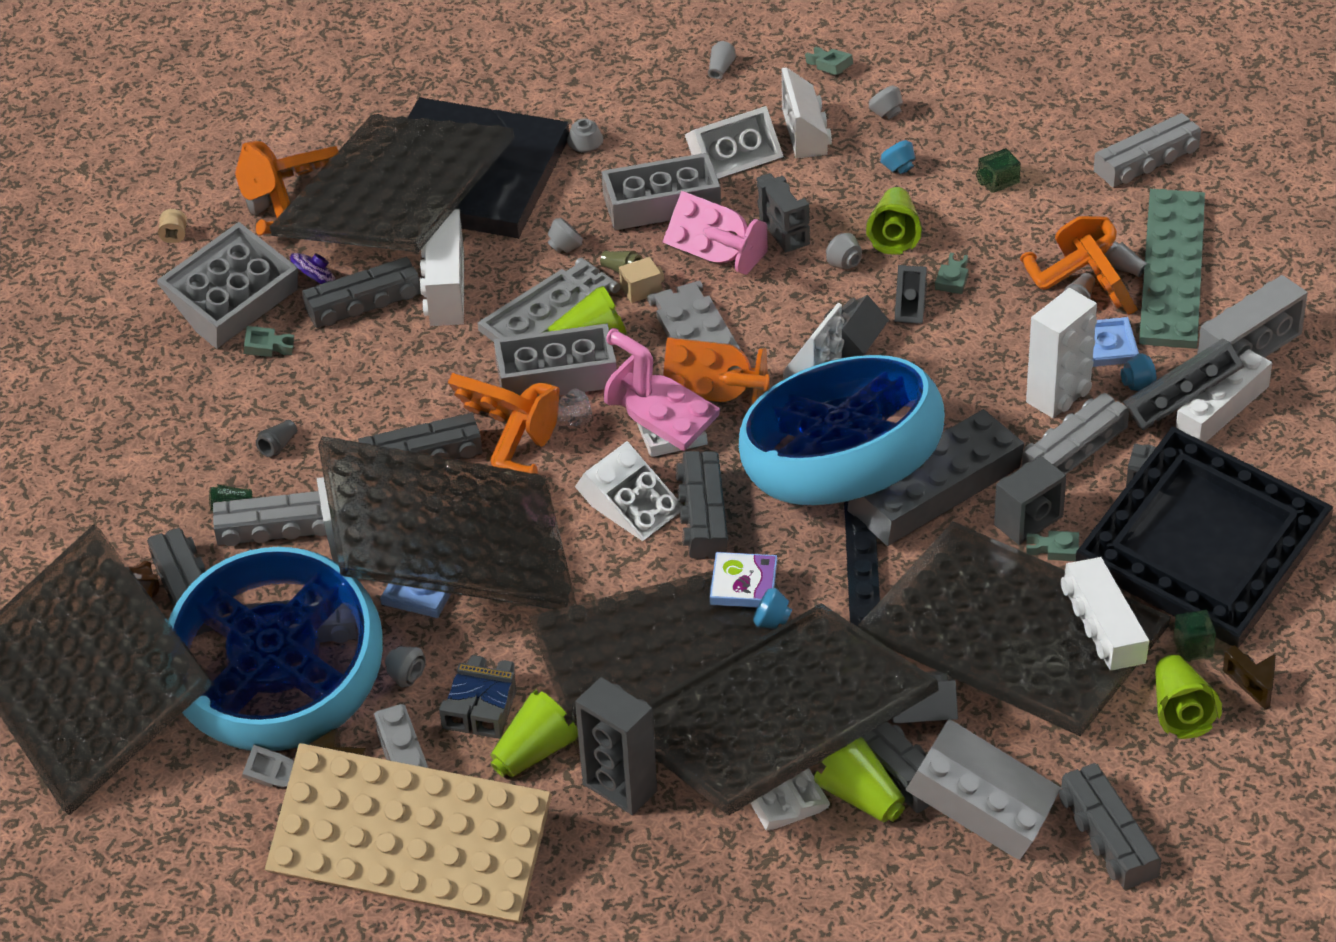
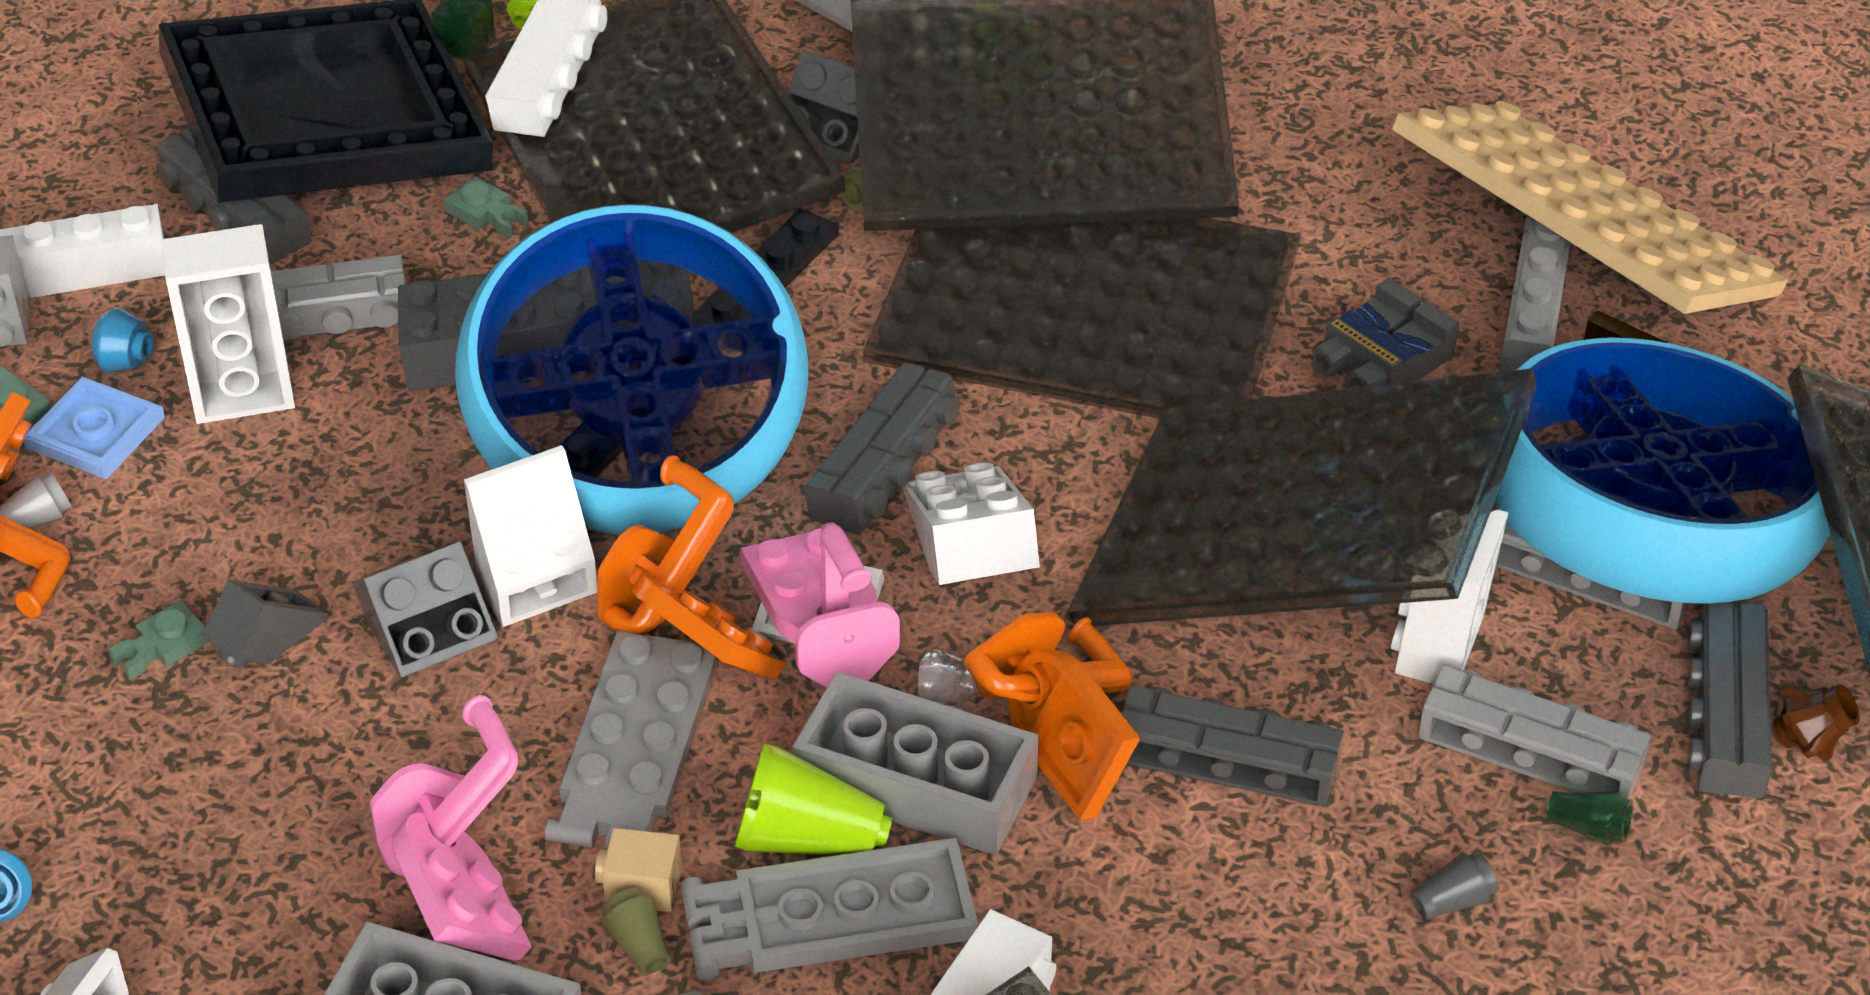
camera: 150 degrees left, 0 degrees up
(532, 735) = (1349, 253): lime cone -> none
(616, 745) = (1279, 124): dark grey brick -> none
(742, 578) = (927, 310): tile -> none
(772, 610) = (936, 238): dark azure cone -> none
(785, 216) = (306, 847): dark grey hips -> none
(844, 251) = (281, 746): light grey cone -> none
(894, 223) = (143, 750): lime cone -> none
(1029, 499) = (469, 221): dark grey brick -> none
(1183, 383) = (93, 242): dark grey brick -> none

